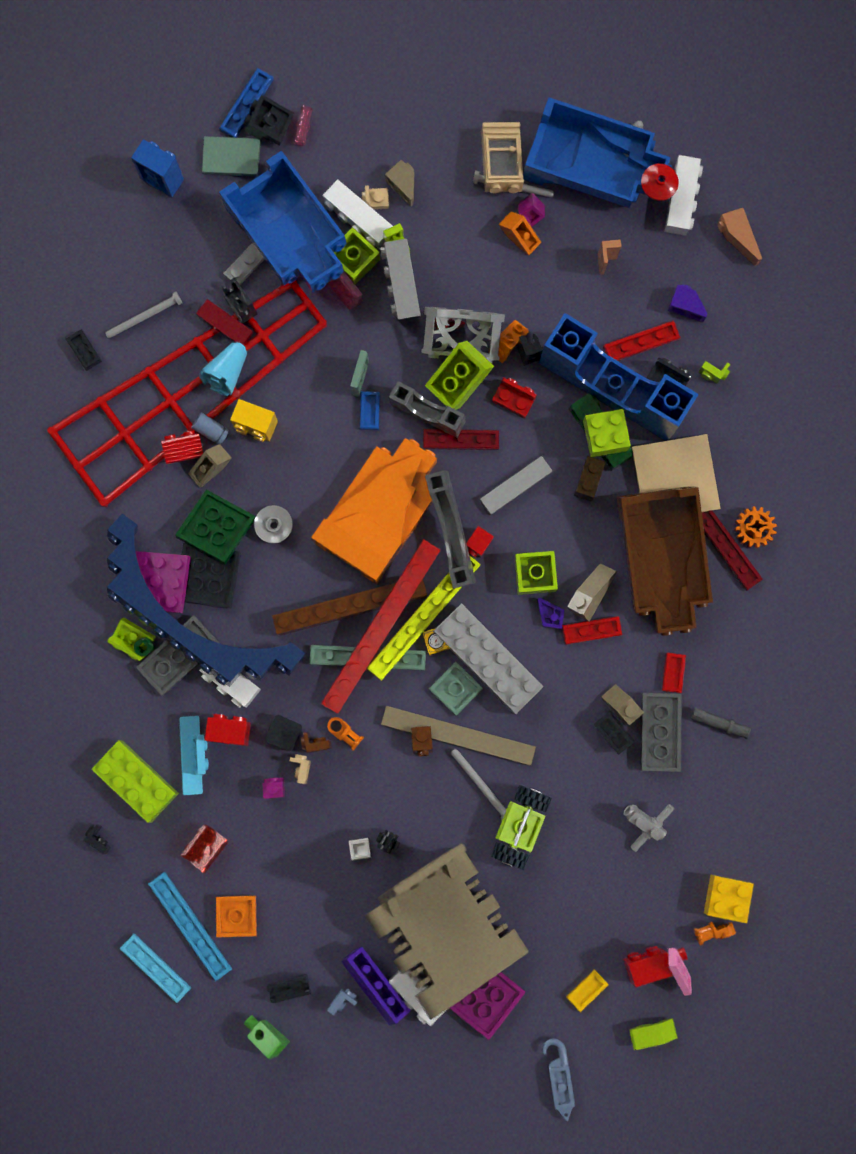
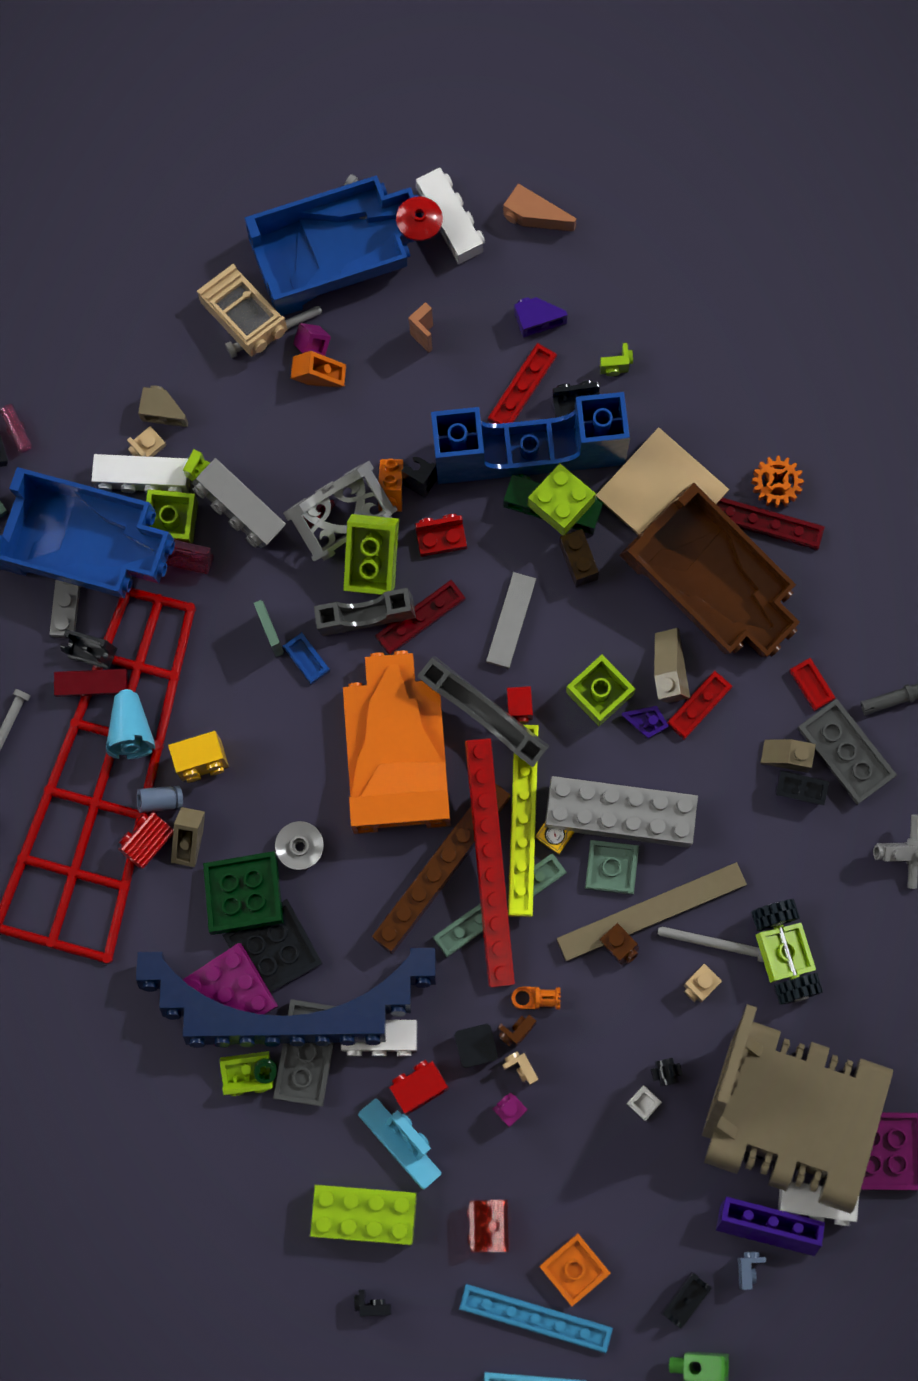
camera: 30 degrees left, 5 degrees down
(453, 804) = (701, 984): none -> tan bracket

